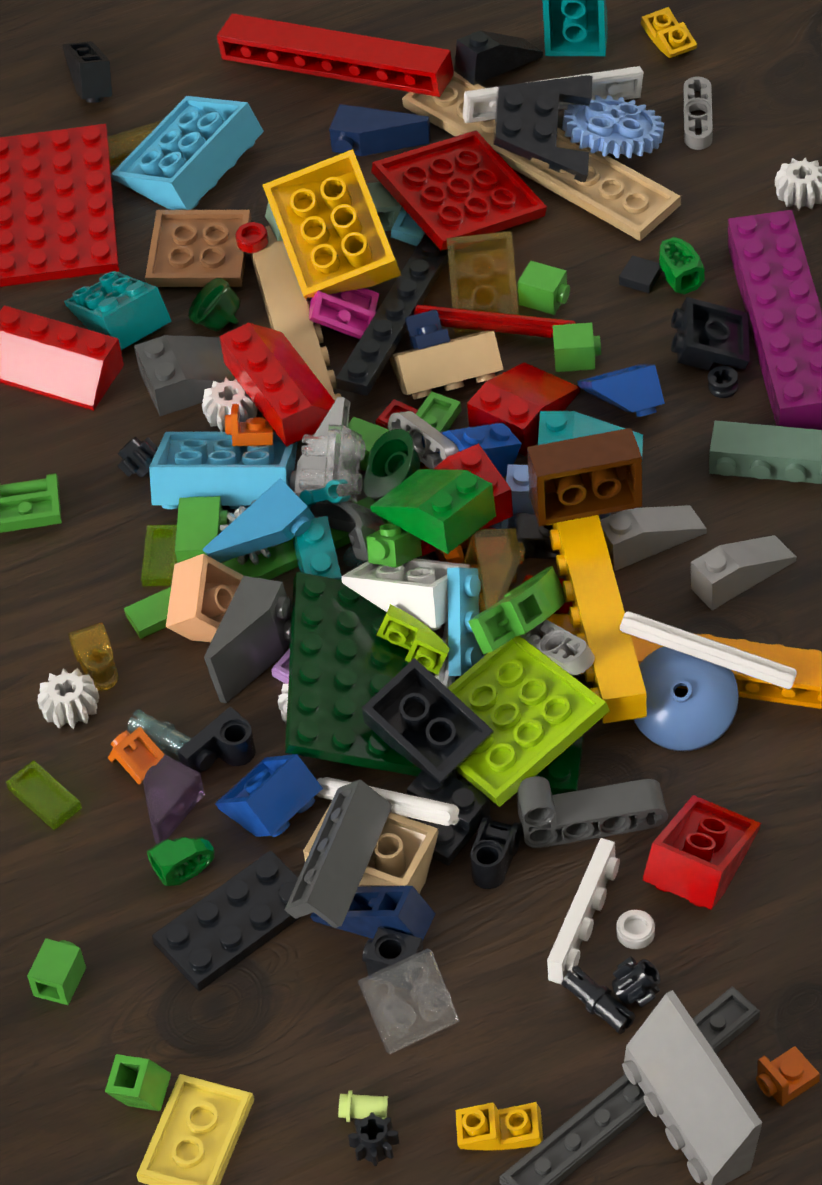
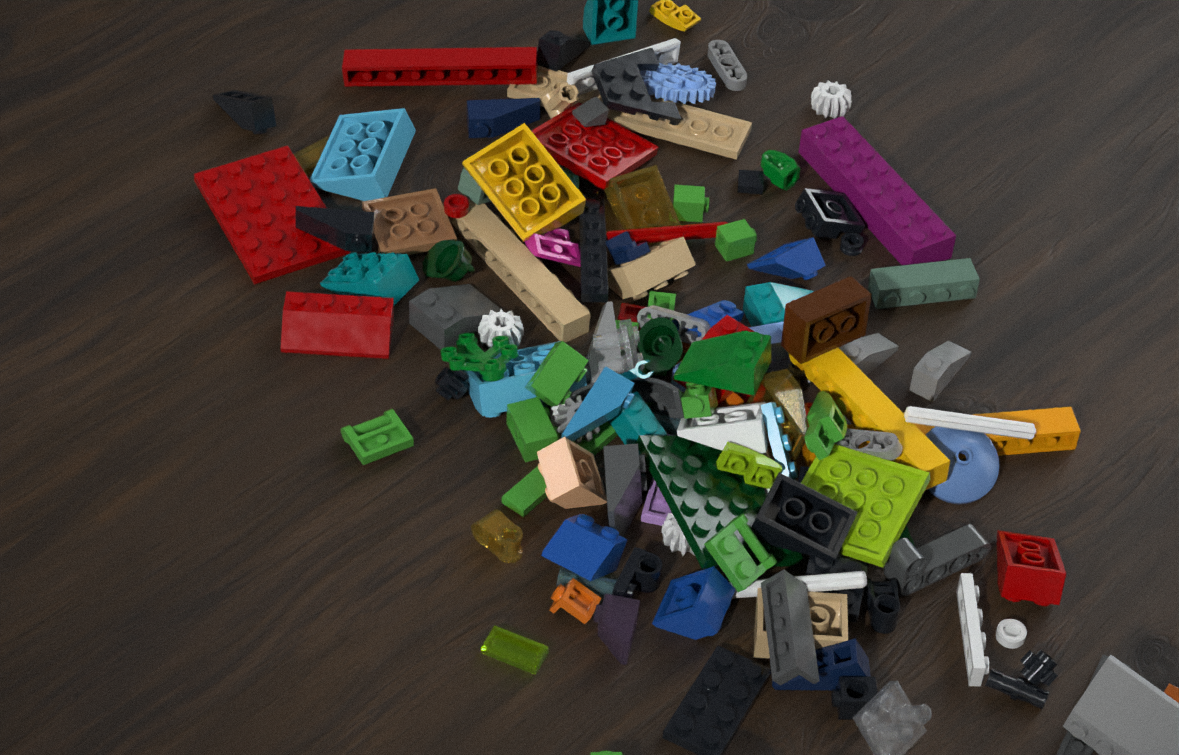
camera: 30 degrees left, 5 degrees down
(68, 698) = (497, 572): white gear -> none
(110, 240) = (341, 228): none -> black slope
(159, 555) = (506, 452): clear neon green tile -> none
(172, 695) = (585, 547): none -> blue slope
(174, 449) = (477, 359): none -> green plant
(180, 859) = (652, 669): green rock -> none
(242, 474) = (557, 374): none -> bright green brick
(253, 432) = (530, 346): orange bracket -> none
(276, 380) = (539, 305): red slope -> none
(324, 748) = (733, 556): none -> bright green plate
(446, 123) = (559, 99): none -> tan piece
(476, 148) = (591, 113): none -> dark grey slope
(517, 401) = (717, 282): red slope -> none

